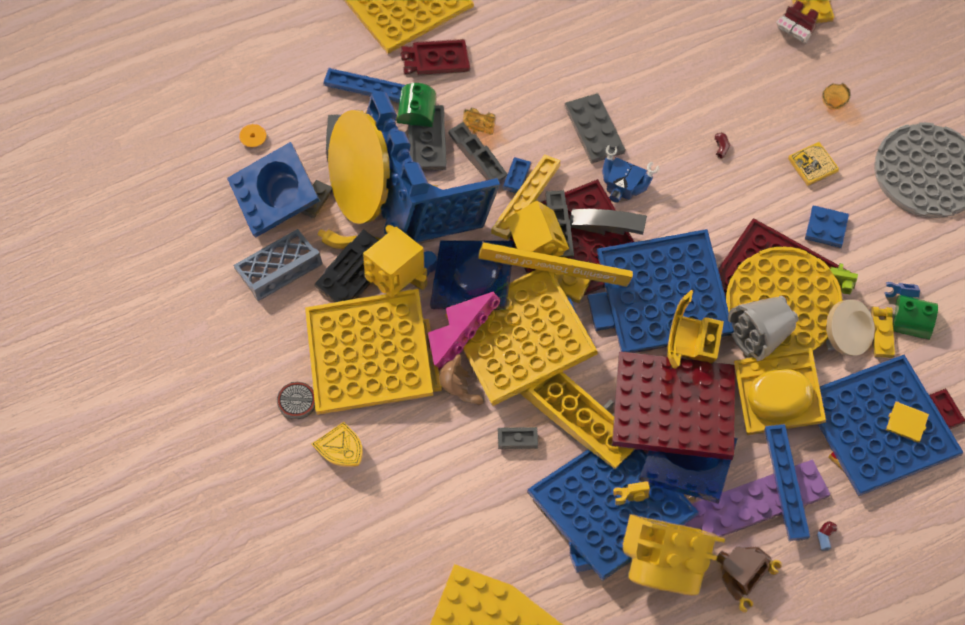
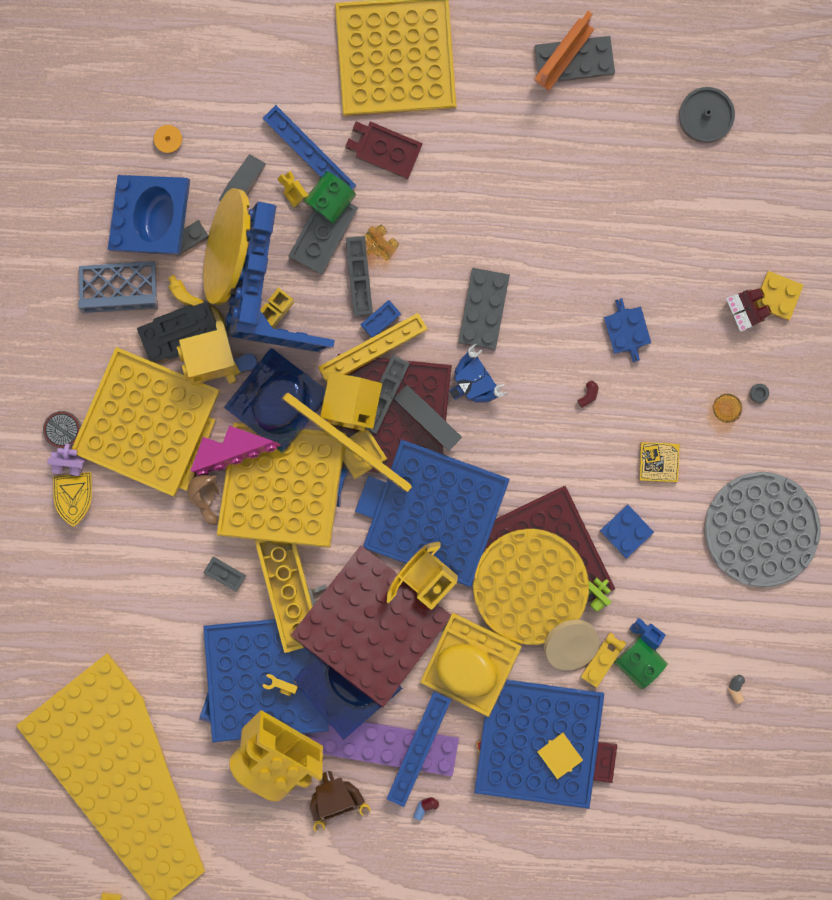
camera: 35 degrees right, 25 degrees up
(309, 425) = (67, 458): none -> lavender hips
(718, 85) = (627, 330): none -> blue plate
(762, 325) = (491, 605): light grey cone -> none
(850, 78) = (759, 393): none -> dark grey tile

